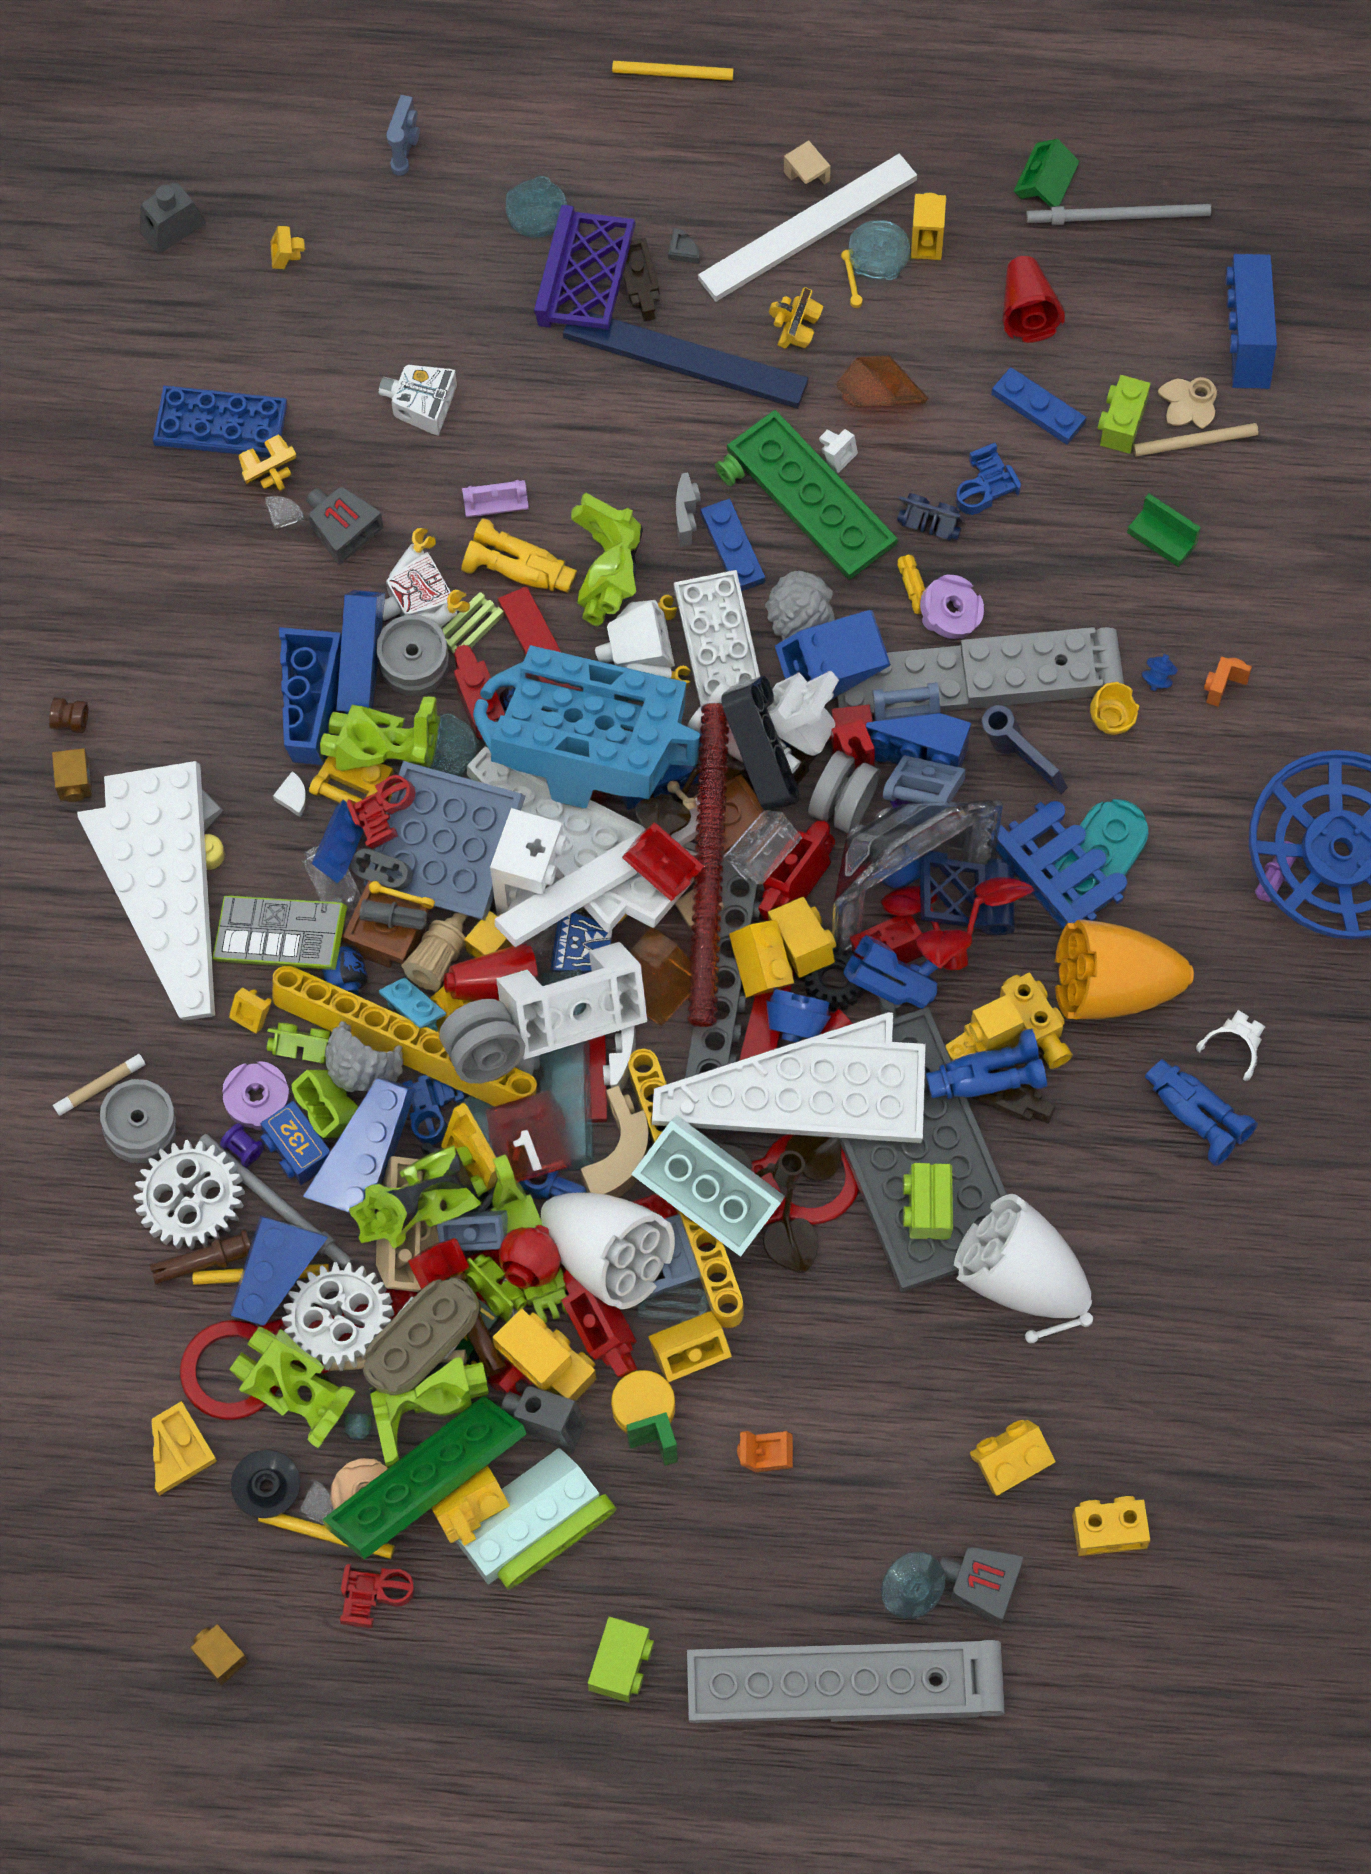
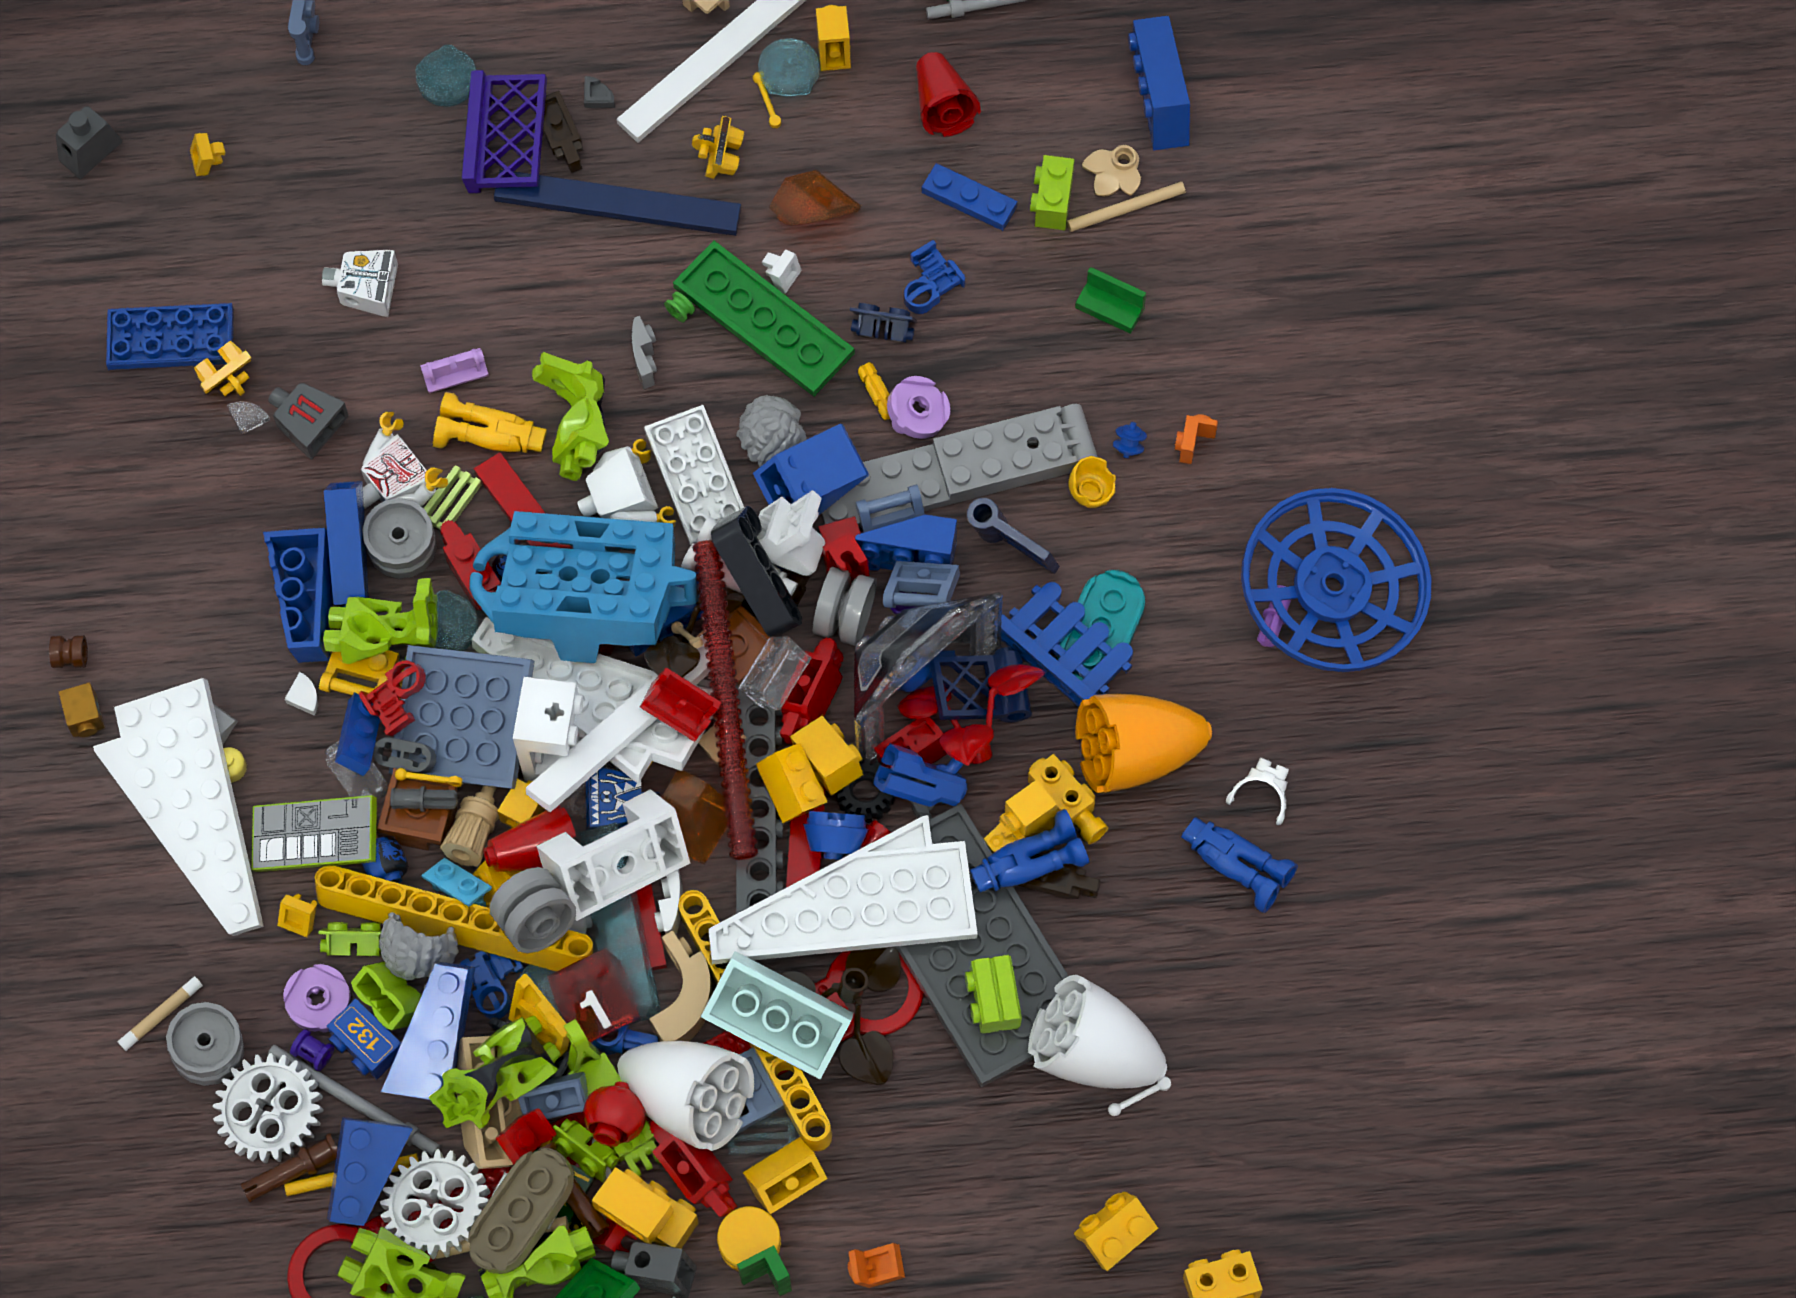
camera: 10 degrees left, 0 degrees up
(732, 543) = (694, 378): blue plate -> none

